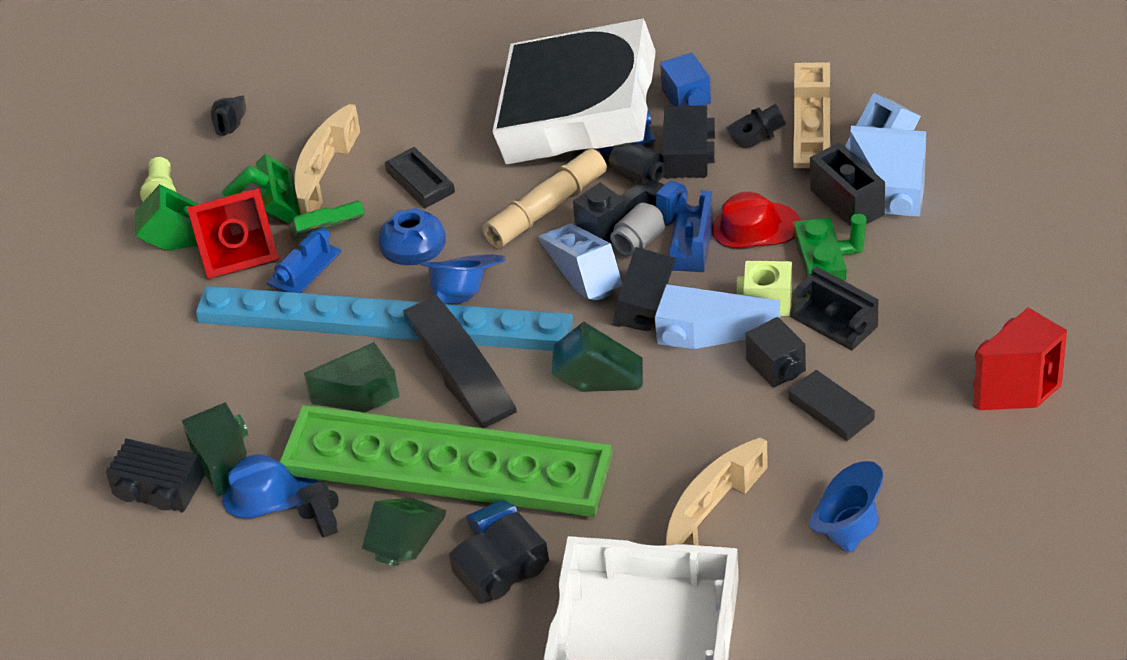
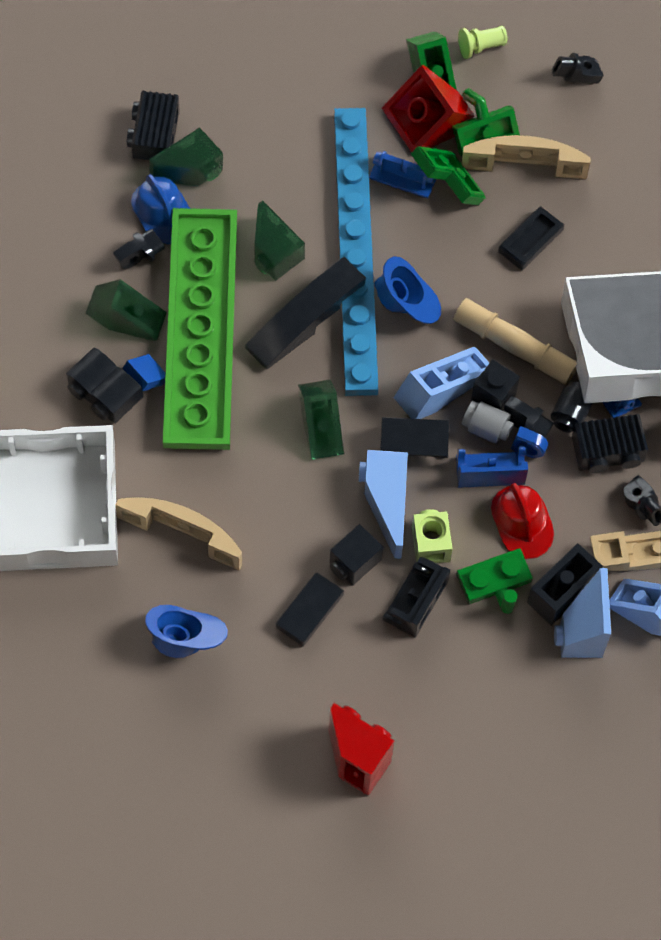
camera: 70 degrees right, 20 degrees up
(412, 244) = (455, 260): blue piece -> none

